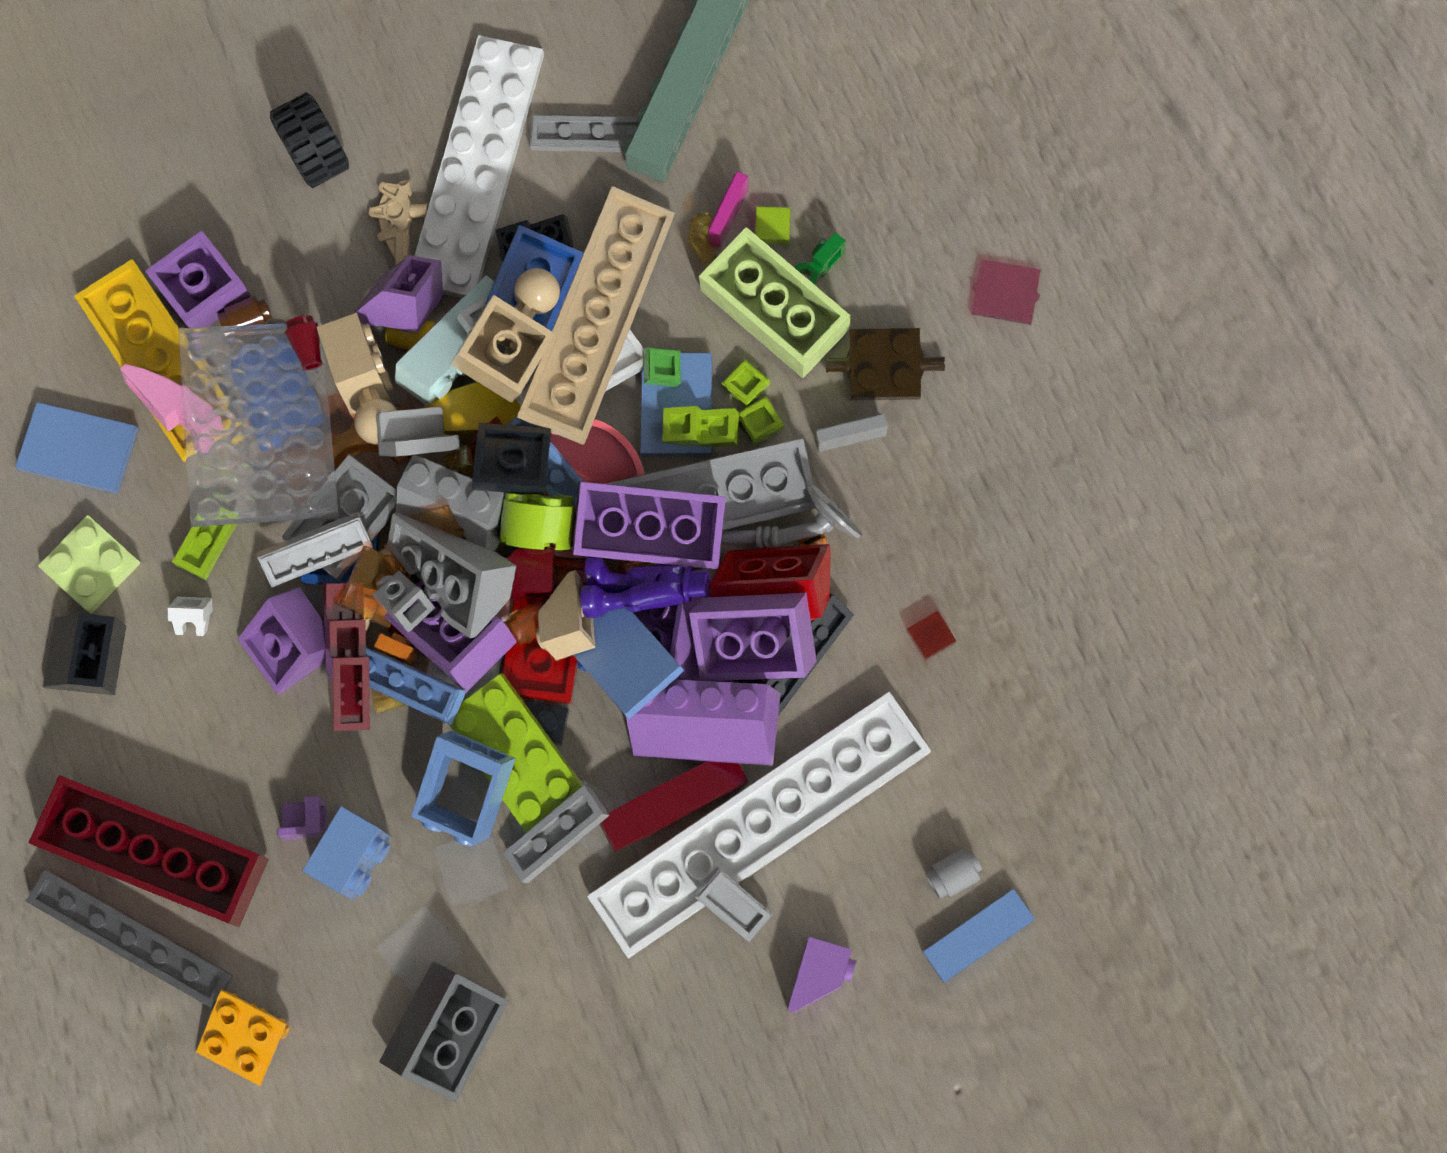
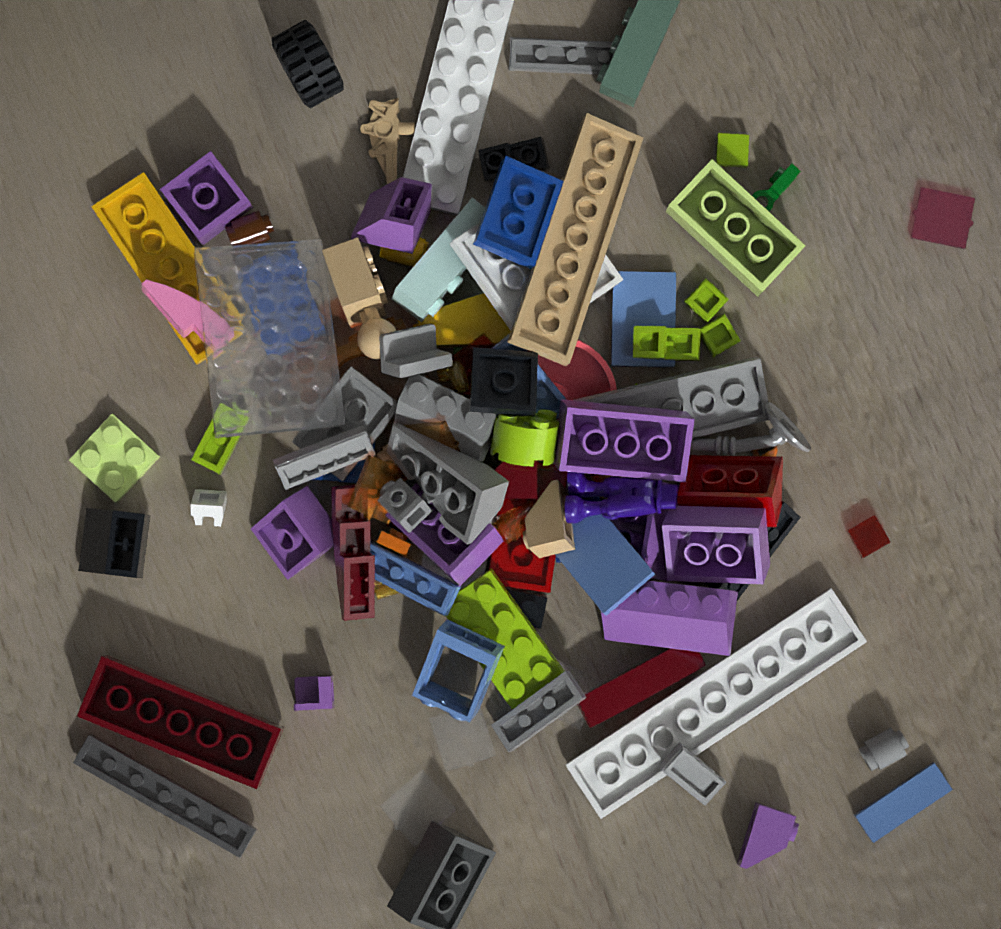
camera: 10 degrees left, 10 degrees up
(77, 448) = (98, 349): medium blue tile -> none
(242, 1037) = (266, 882): light orange hinge -> none
(305, 341) = (310, 261): dark red cone -> none
(348, 854) = (356, 728): medium blue brick -> none
(502, 324) = (514, 272): tan brick -> none
(662, 367) = (632, 286): bright green tile -> none
(698, 237) = (664, 158): clear yellow arm -> none
(728, 209) = (692, 135): dark pink tile -> none
(851, 432) = (801, 350): light grey tile -> none
(885, 364) = (832, 285): dark brown plate -> none

